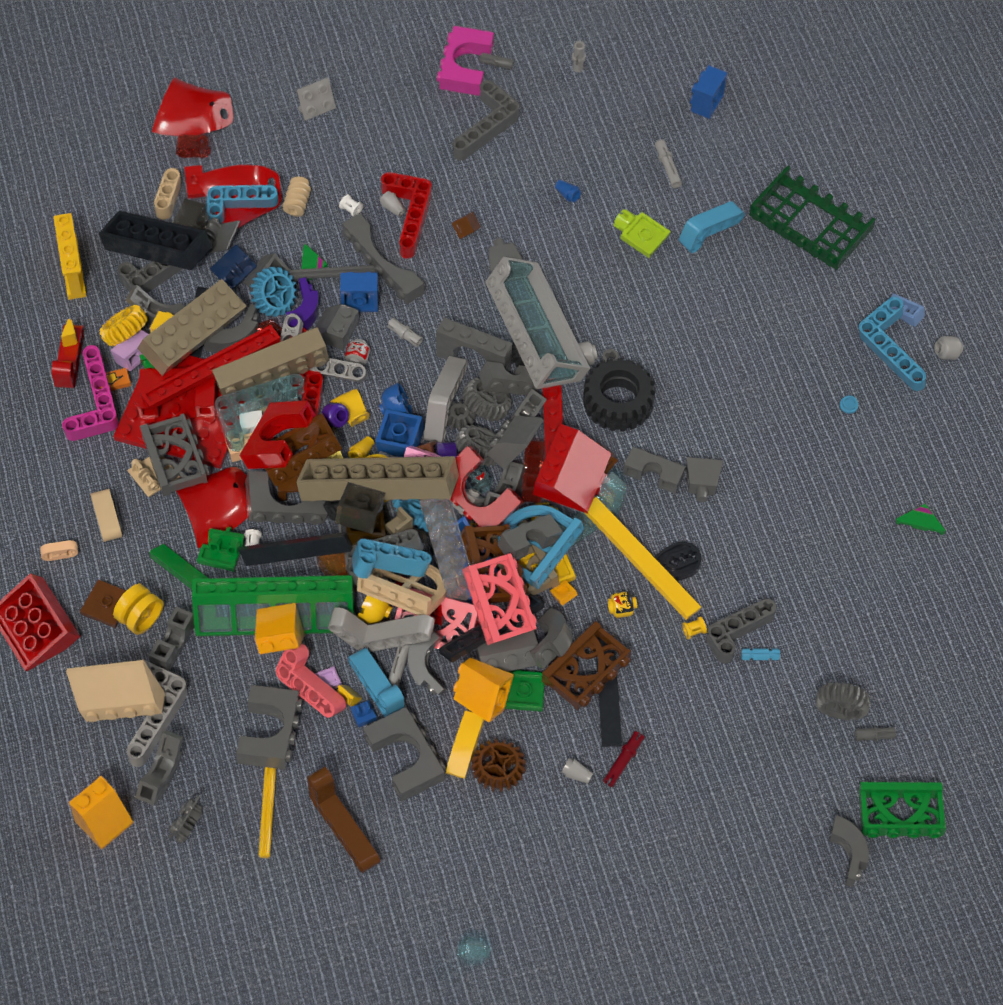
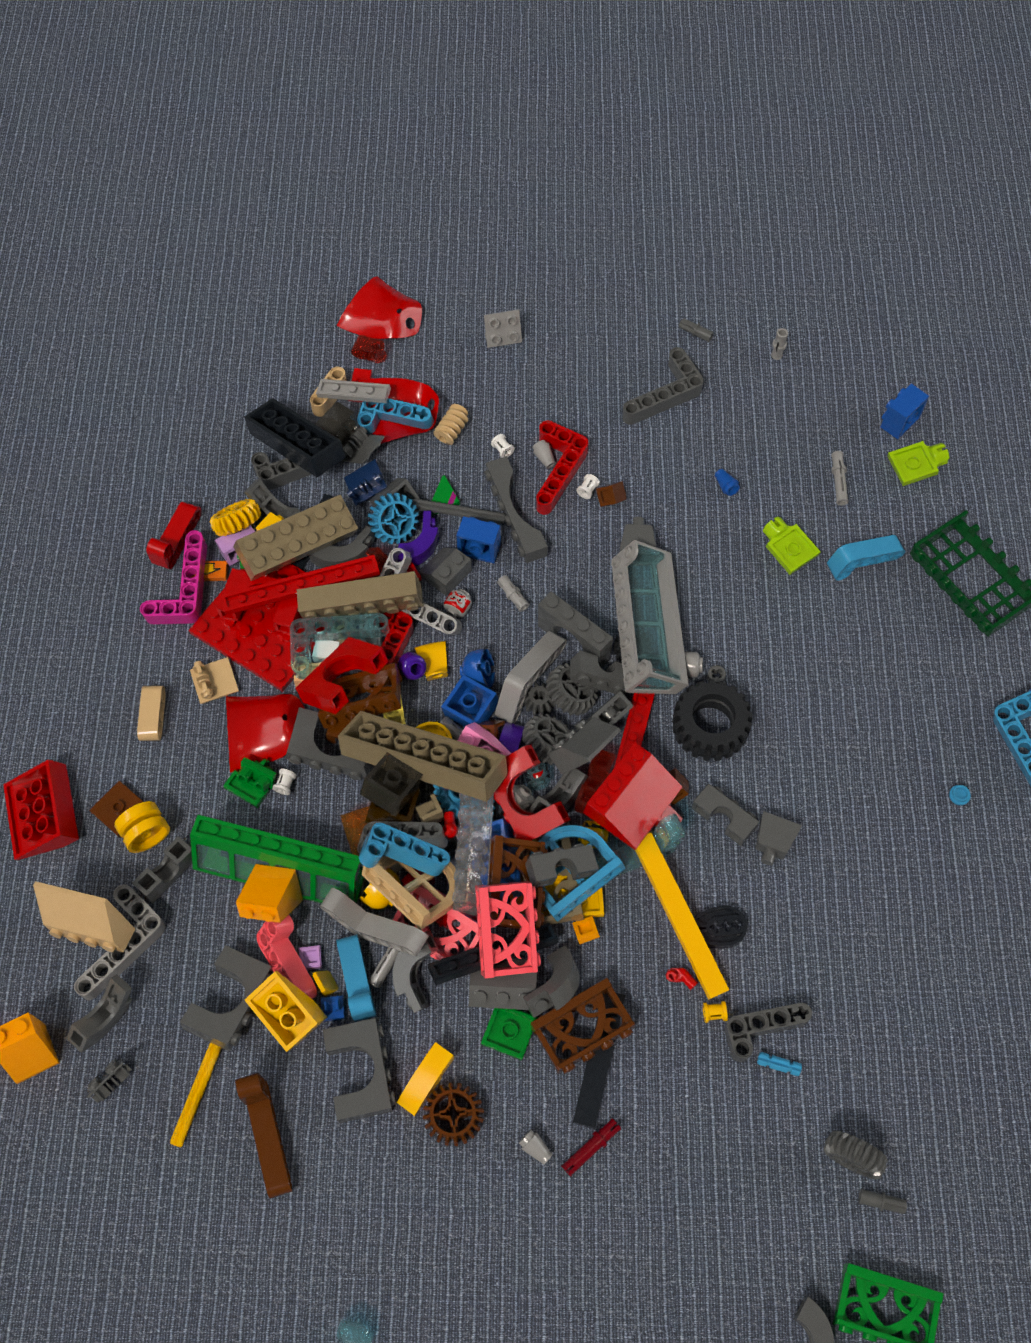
camera: 20 degrees right, 5 degrees up
(59, 550) = (92, 738): light nougat beam -> none
(68, 335) = (179, 513): yellow slope -> none
(69, 256) = (209, 433): yellow fence -> none
(153, 440) = (216, 673): dark grey fence -> none
(175, 565) = (205, 791): green slope -> none
(195, 186) = (353, 391): none -> light grey tile
(296, 549) = (319, 806): black tile -> none
(325, 719) = (285, 1010): none -> yellow slope
(362, 448) = (427, 709): yellow cone -> none
(424, 533) = (450, 828): none -> red arm
(442, 223) = (584, 487): none -> white bush
(462, 42) = (665, 303): dark pink arch -> none
(482, 688) = (461, 1023): light orange slope -> none
(622, 604) = (644, 961): yellow head -> none
(657, 608) = (681, 975): none -> red arm
(733, 133) = (918, 461): none -> lime plate
(921, 519) = (1006, 952): green tile -> none

